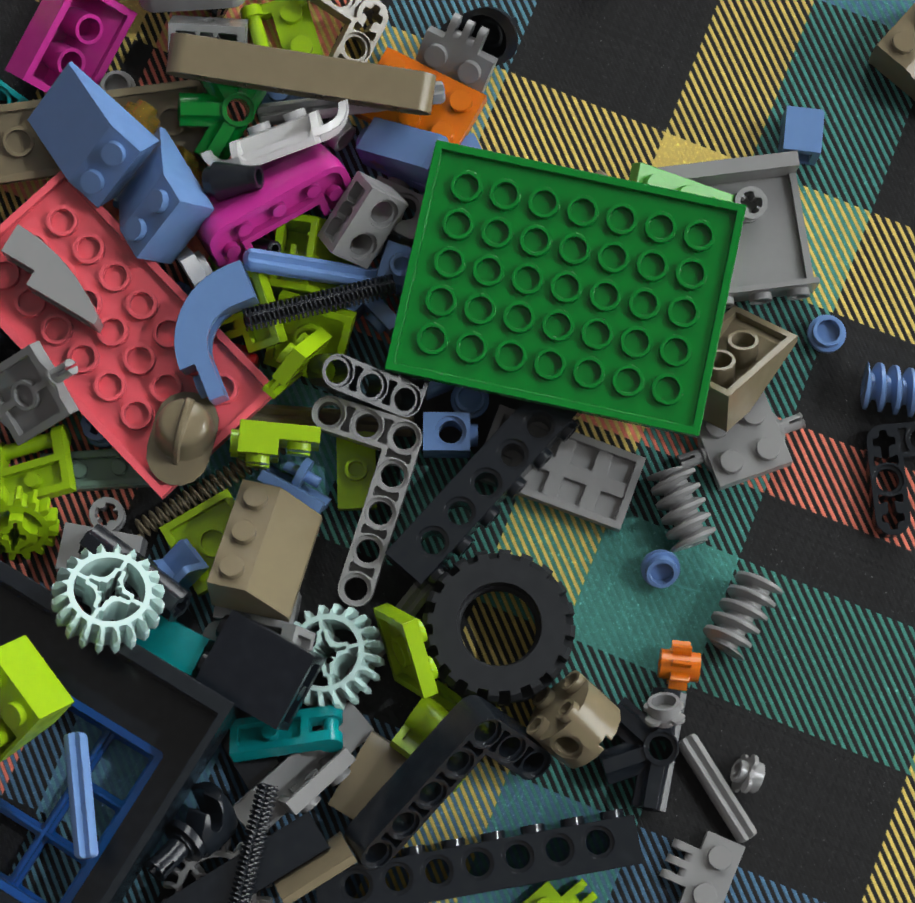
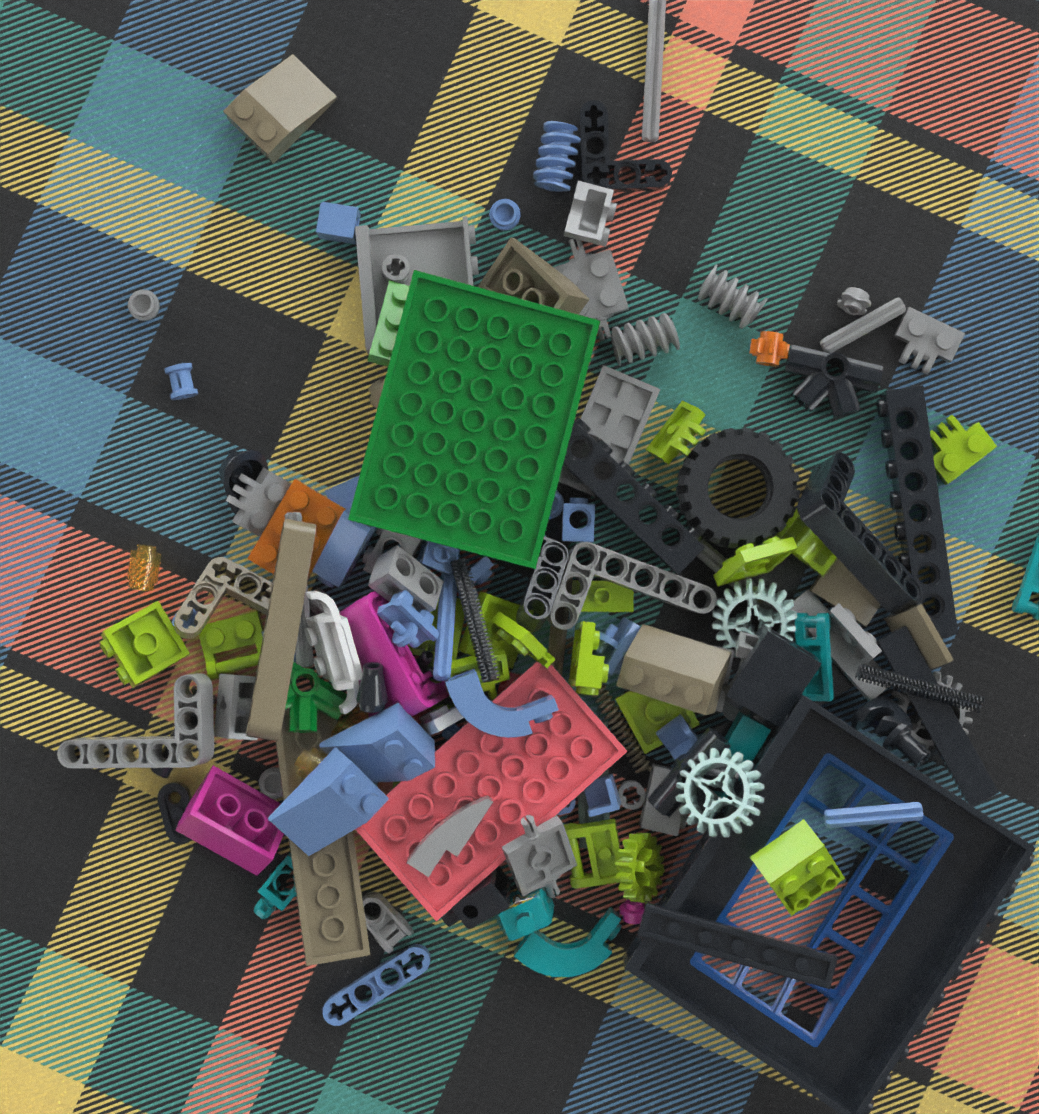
camera: 80 degrees left, 10 degrees up
(105, 474) = (602, 796): none -> medium blue panel
(182, 438) = (581, 733): dark tan piece -> none
(311, 216) = (409, 624): none -> medium blue hips
(565, 553) = (677, 433): none -> lime hinge
(573, 720) = (813, 432): dark tan brick -> none
(660, 568) = (691, 359): medium blue plate -> none
(664, 710) = (810, 362): light grey plate -> none
(833, 434) = (589, 214): none -> light grey cylinder

